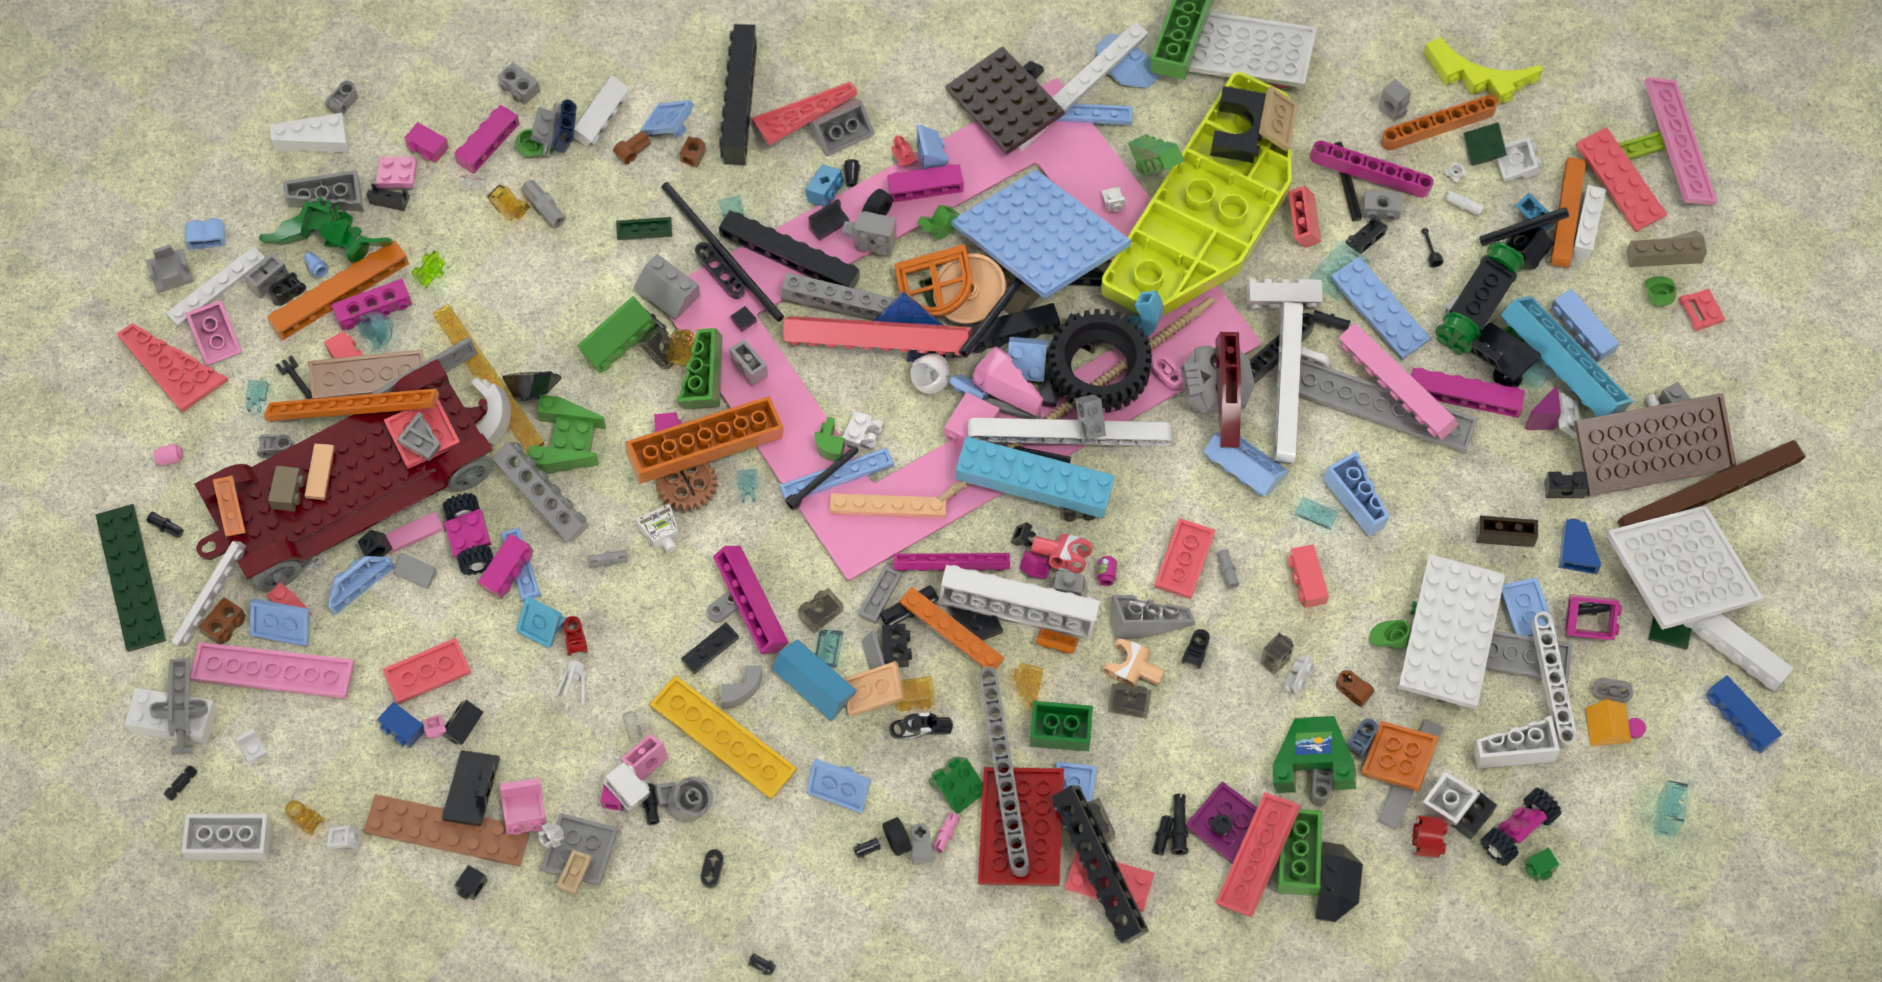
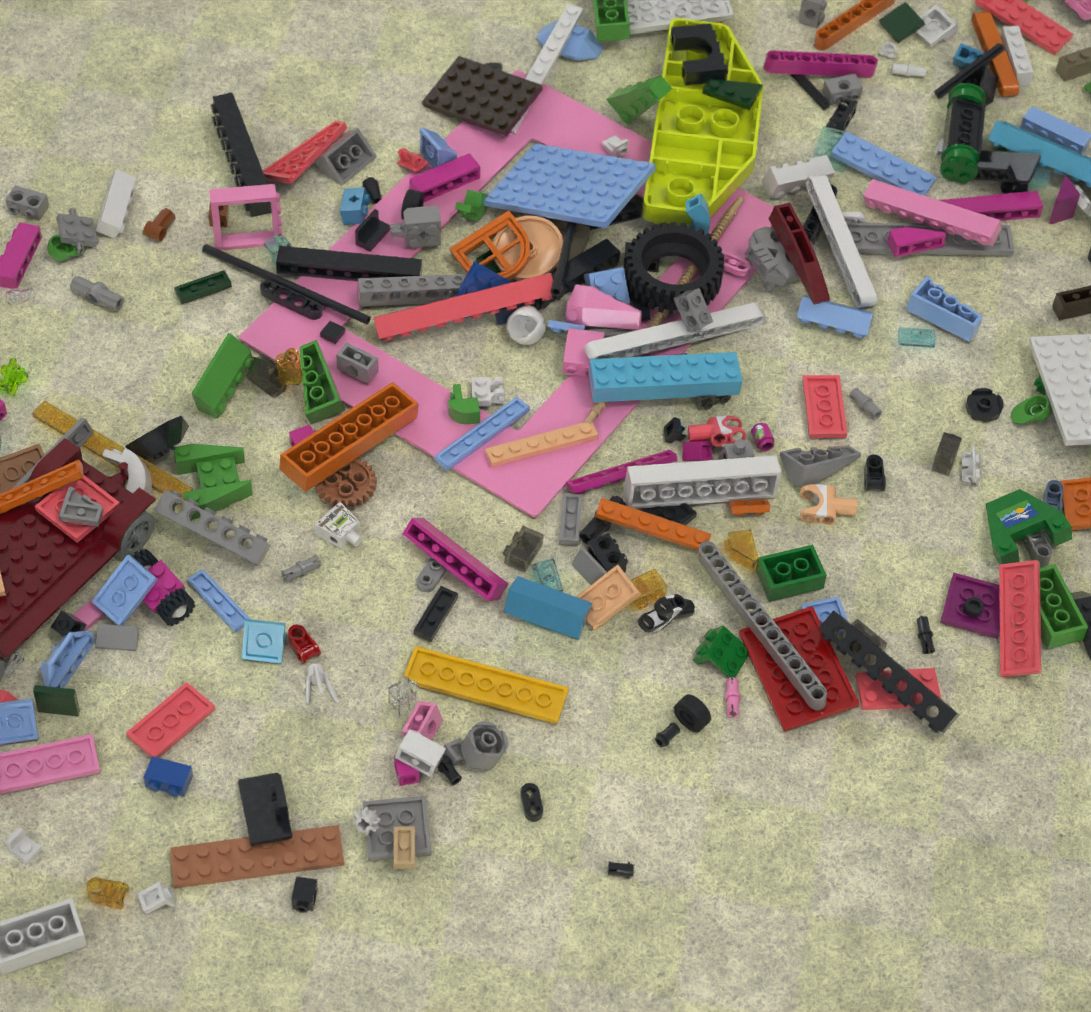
camera: 25 degrees left, 10 degrees down
(333, 617) = (56, 700): none -> dark green tile
(434, 726) = (205, 764): bright pink plate -> none
(435, 528) = (124, 590): none -> light blue plate
(462, 722) = (227, 754): black hinge -> none
(506, 203) = (63, 302): clear yellow brick -> none
(506, 566) = (208, 603): dark pink brick -> none
(522, 806) = (324, 807): bright pink panel -> none
(564, 126) = (90, 221): dark blue beam -> none
(667, 287) = (250, 324): light grey slope -> none
(668, 118) = (185, 190): light blue plate -> none
(707, 153) = (244, 195): none -> bright pink window
(737, 694) = (480, 644): light grey brick -> none
(747, 482) = (402, 464): clear light blue plate -> none
(794, 501) = (456, 463): black piece -> none
(838, 785) = (617, 687): light blue plate -> none
(921, 847) = (720, 718): light grey piece -> none
(1098, 114) = (568, 86): light blue tile -> none
(1119, 700) = (838, 534): clear smoke brick -> none
(1179, 830) = (939, 627): black pin -> none
(1255, 180) = (733, 92): none -> dark green wing
(1278, 118) = (730, 40): tan plate -> none
(1304, 216) = (784, 114): coral brick -> none
(1308, 576) = (937, 387): coral brick -> none
(1331, 320) = (848, 187): black pin -> none
(1351, 621) = (982, 413): none -> black plate
(1356, 689) = (1024, 462): dark orange piece -> none
(1360, 405) = (914, 240): none -> dark pink slope
(1434, 259) = (906, 117): black hinge -> none

